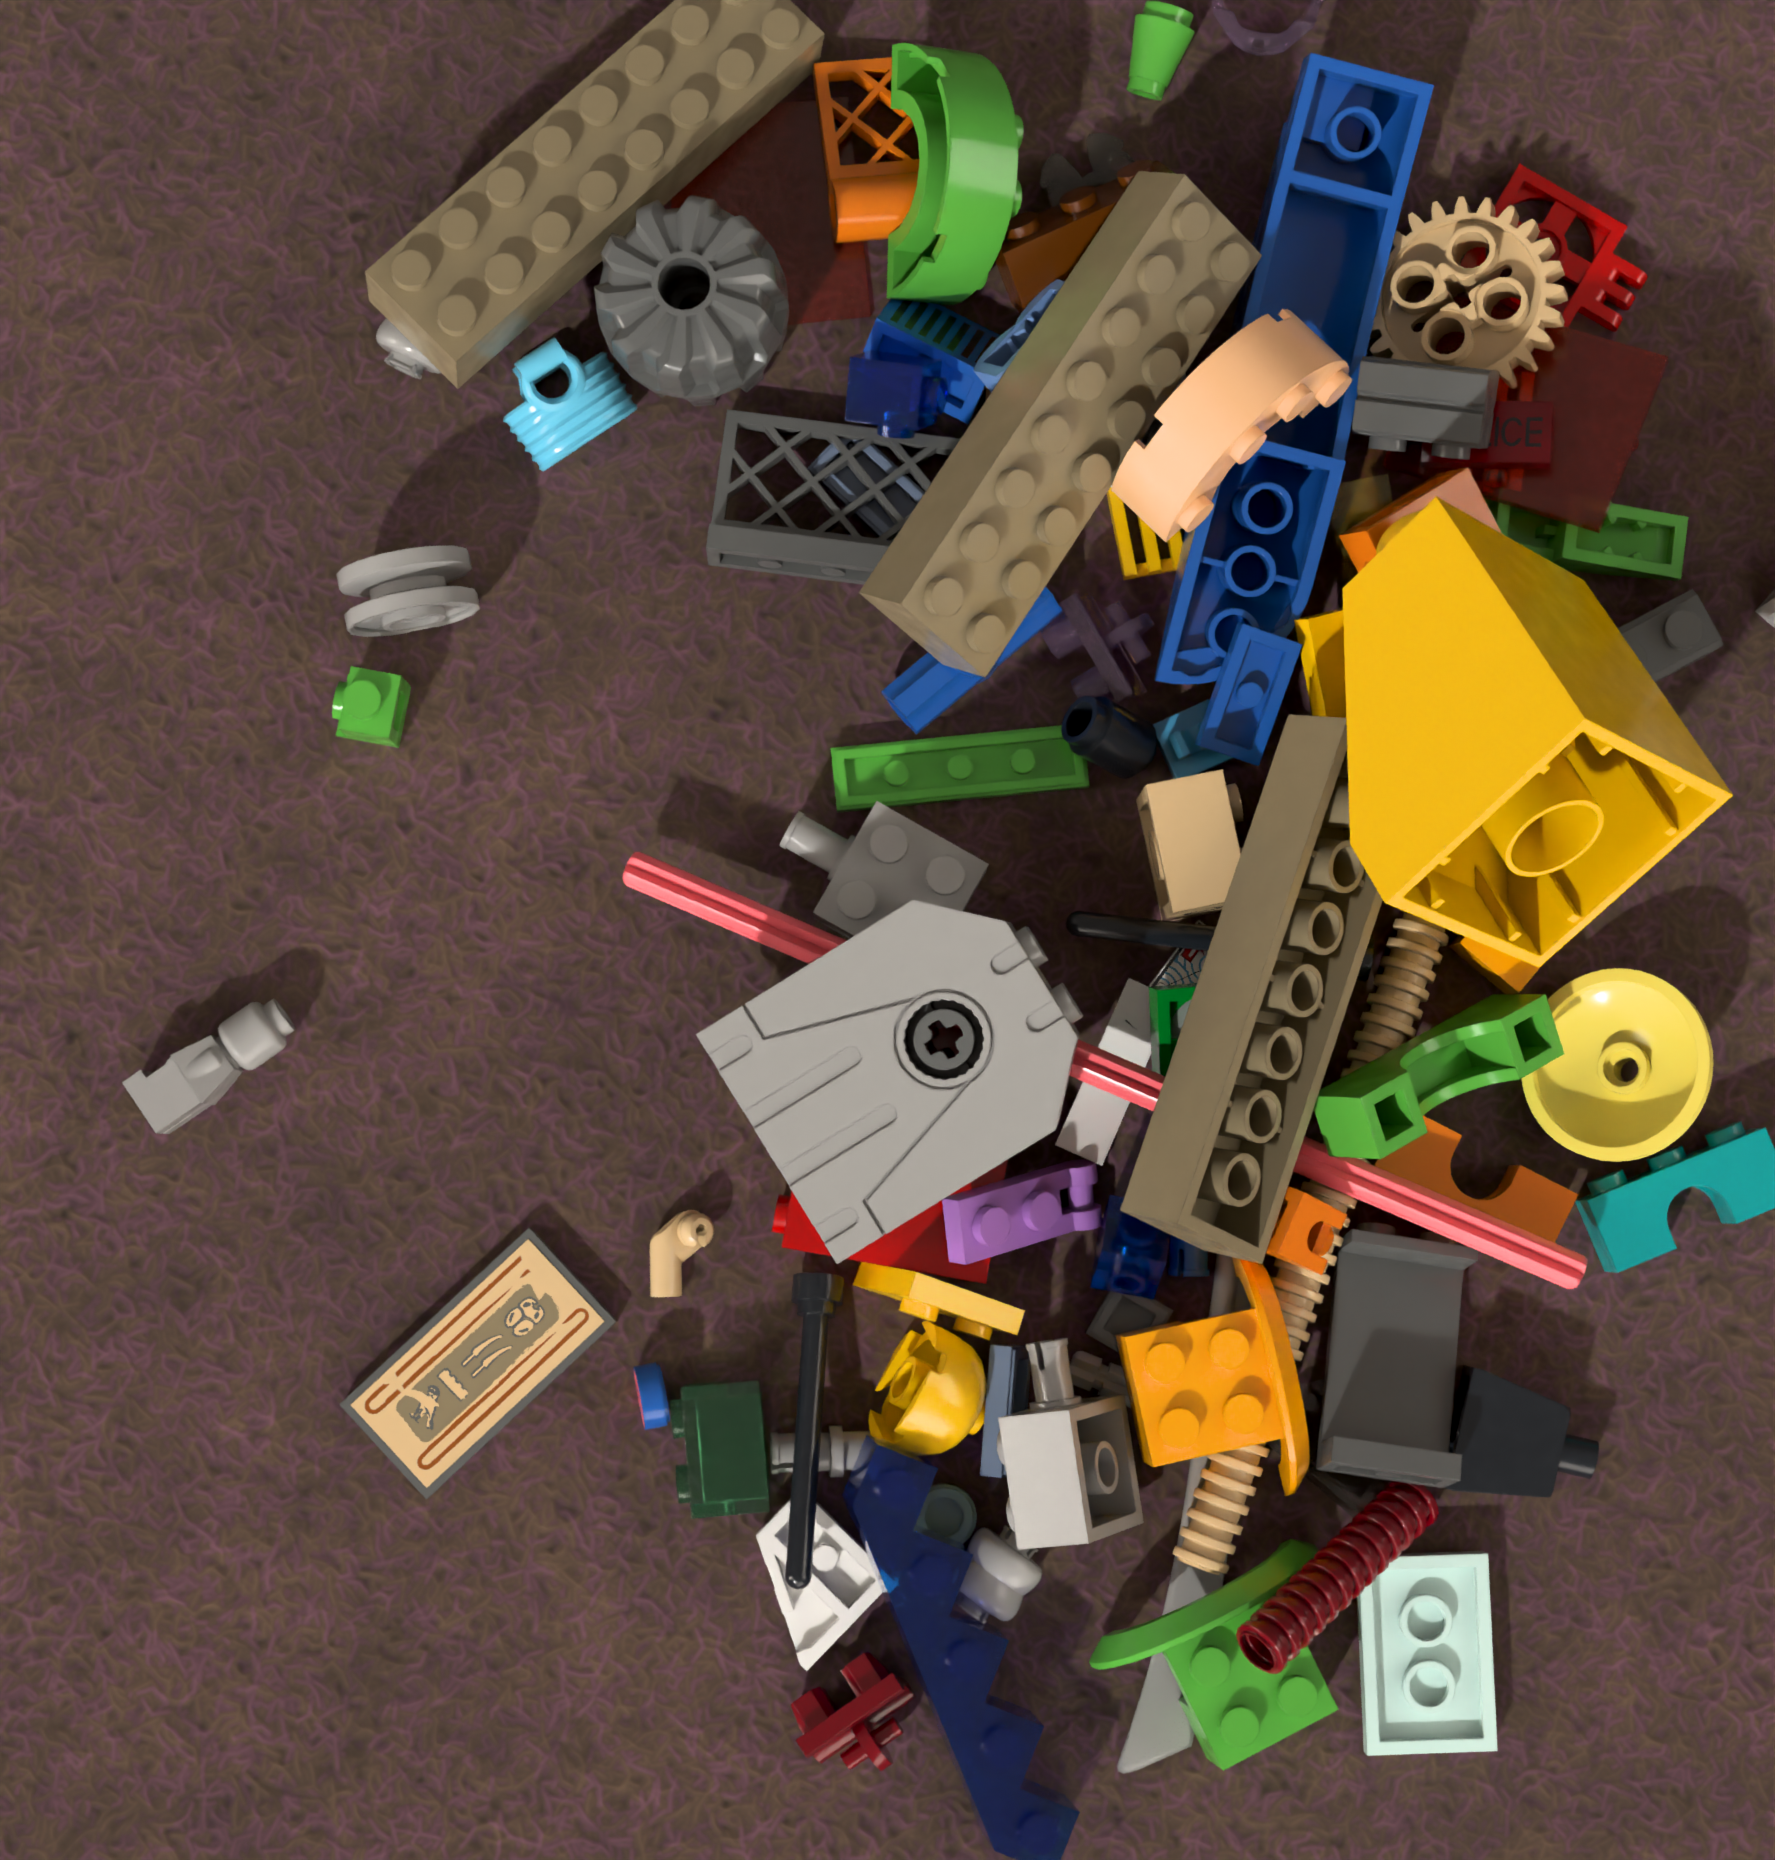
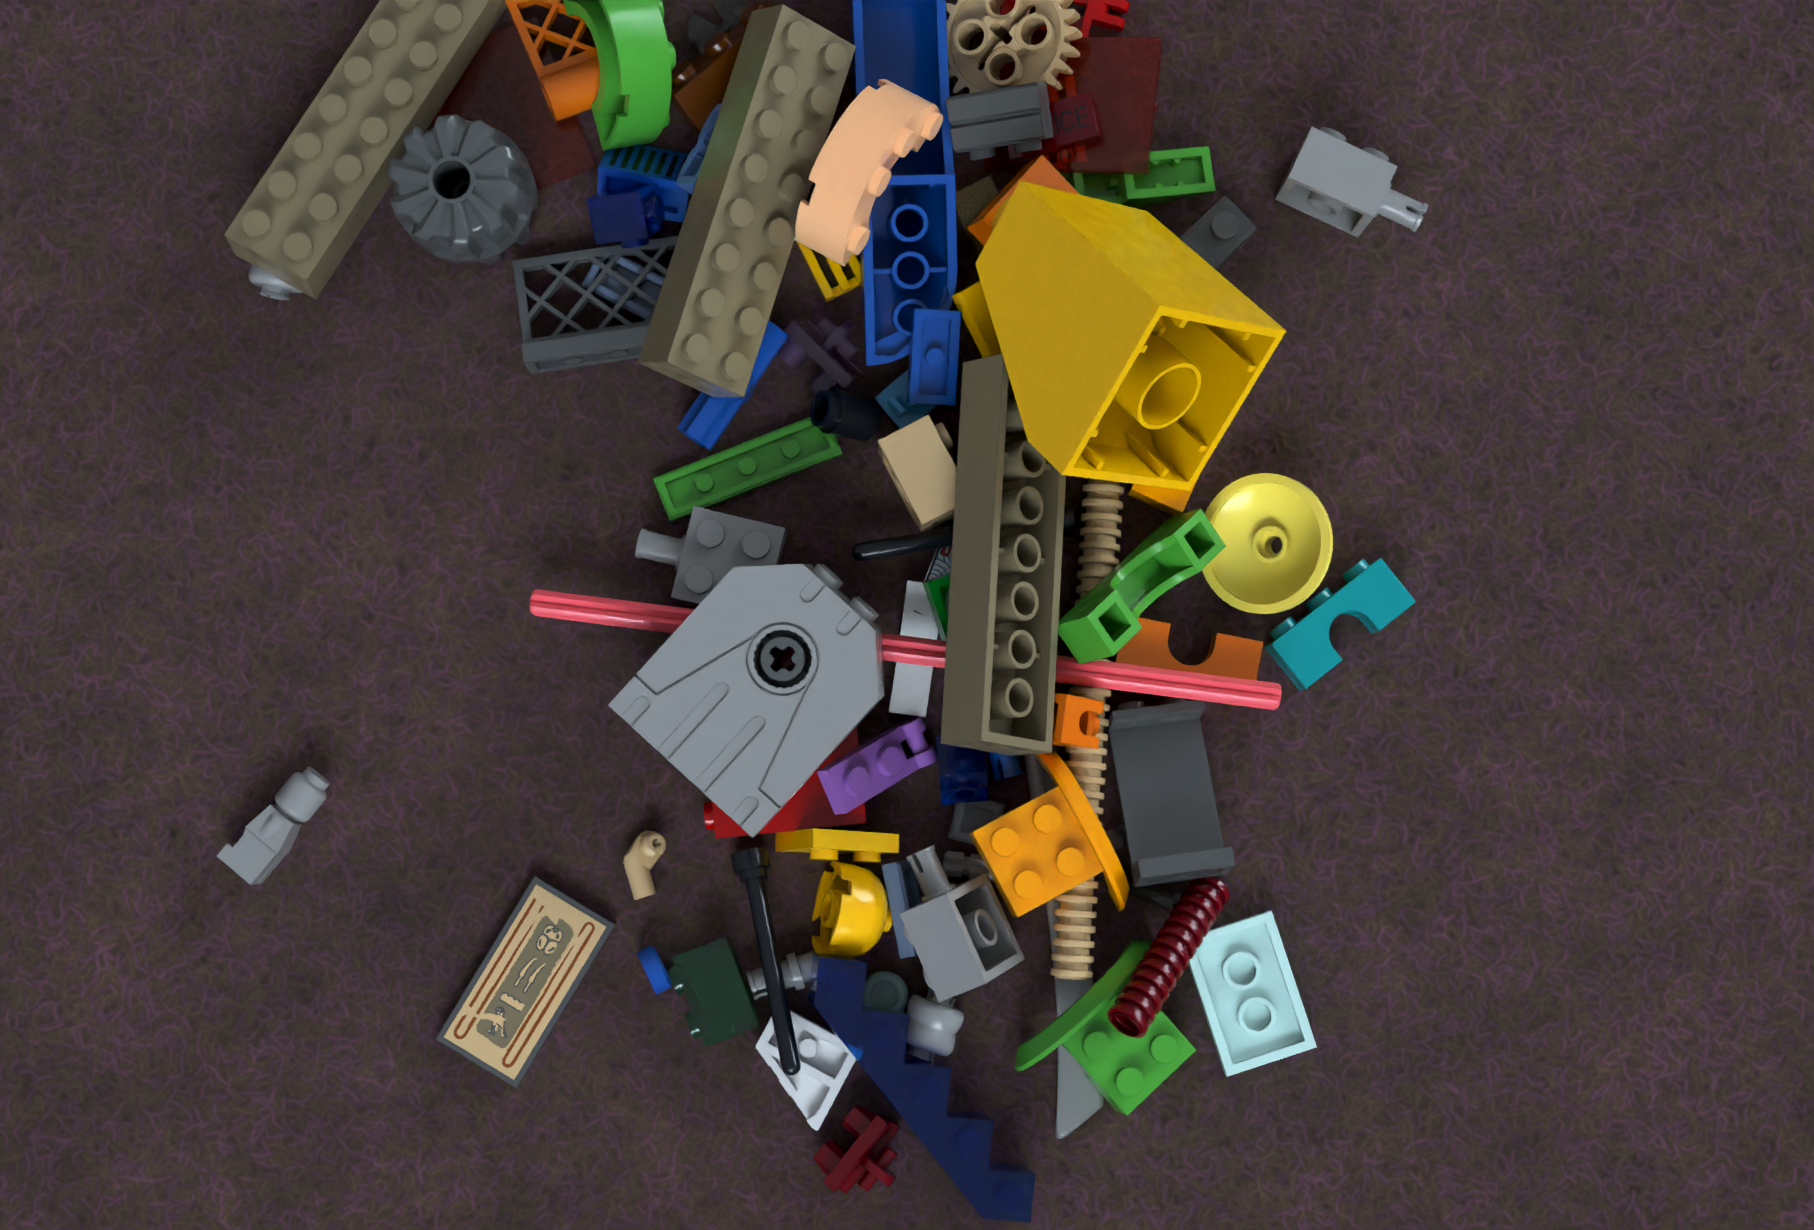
camera: 15 degrees left, 0 degrees up
(371, 706) = (319, 540): bright green brick -> none
(408, 590) = (321, 451): light grey wheel -> none
(563, 424) = (400, 302): medium azure piece -> none
(1513, 1438) = (1266, 826): black torso -> none

